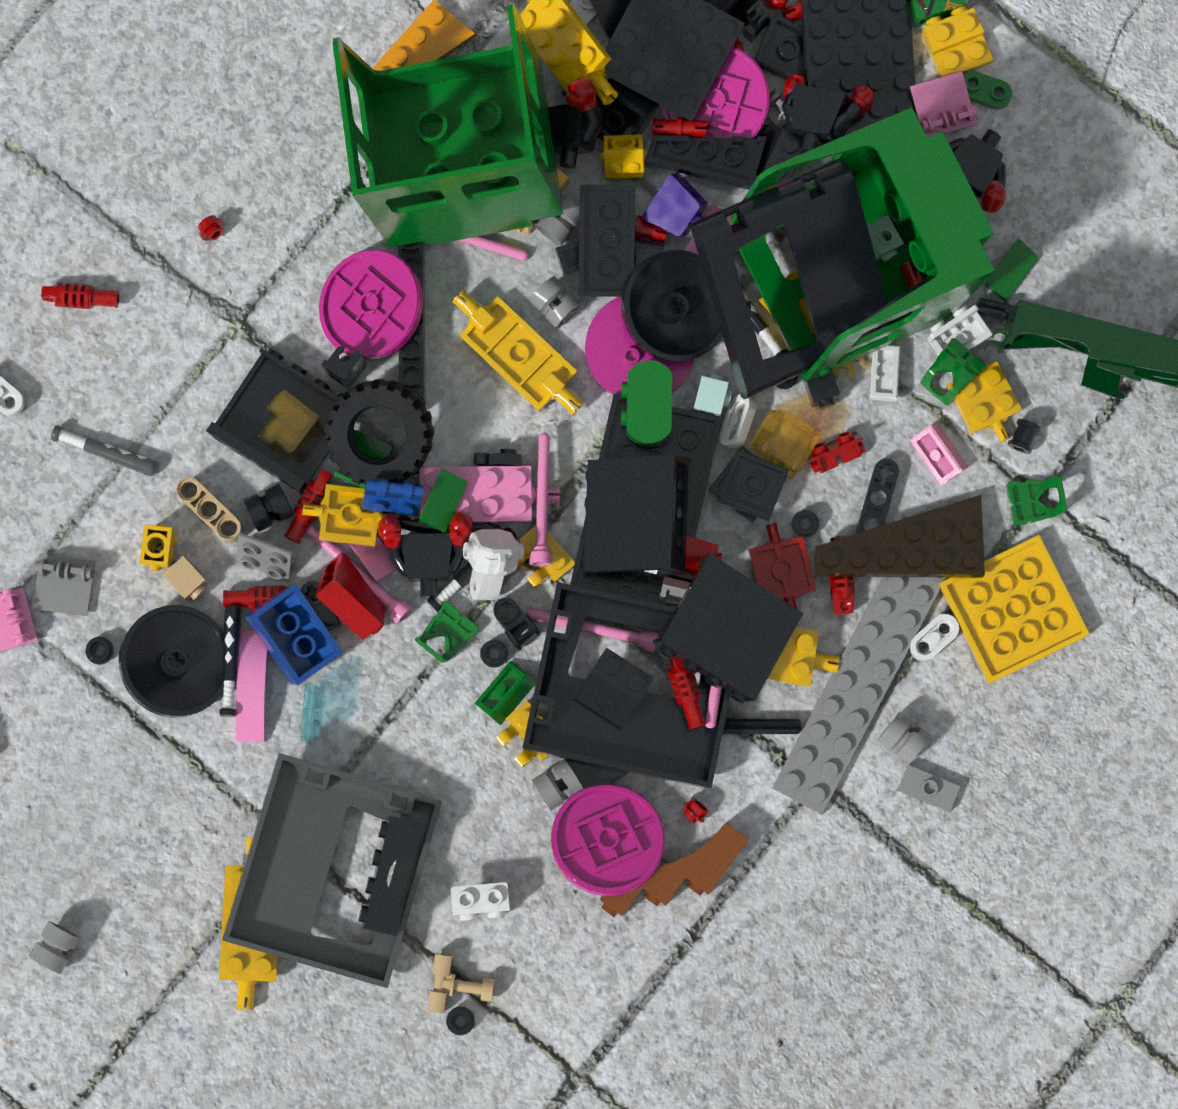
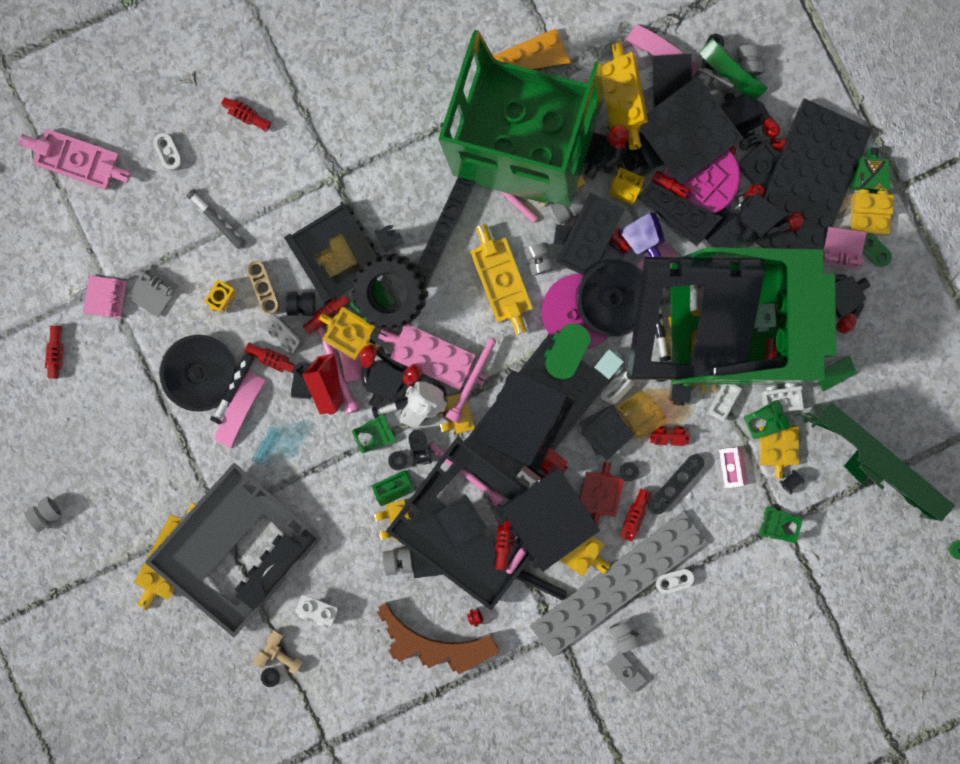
camera: 25 degrees right, 5 degrees up
(91, 648) = (149, 343): black plate -> none
(186, 579) = (229, 324): tan brick -> none
(211, 228) = (347, 109): red plate -> none
(293, 634) = (278, 391): blue slope -> none
(371, 304) = (424, 205): dark pink plate -> none
(392, 496) = (383, 338): blue plate -> none
(443, 500) = (410, 352): green slope -> none
(506, 457) = (462, 342): black plate -> none
(607, 840) = (412, 611): dark pink plate -> none
(928, 544) = (696, 521): dark brown wing -> none
(994, 309) = (814, 394): black axle -> none
(1014, 610) = (732, 587): yellow plate -> none

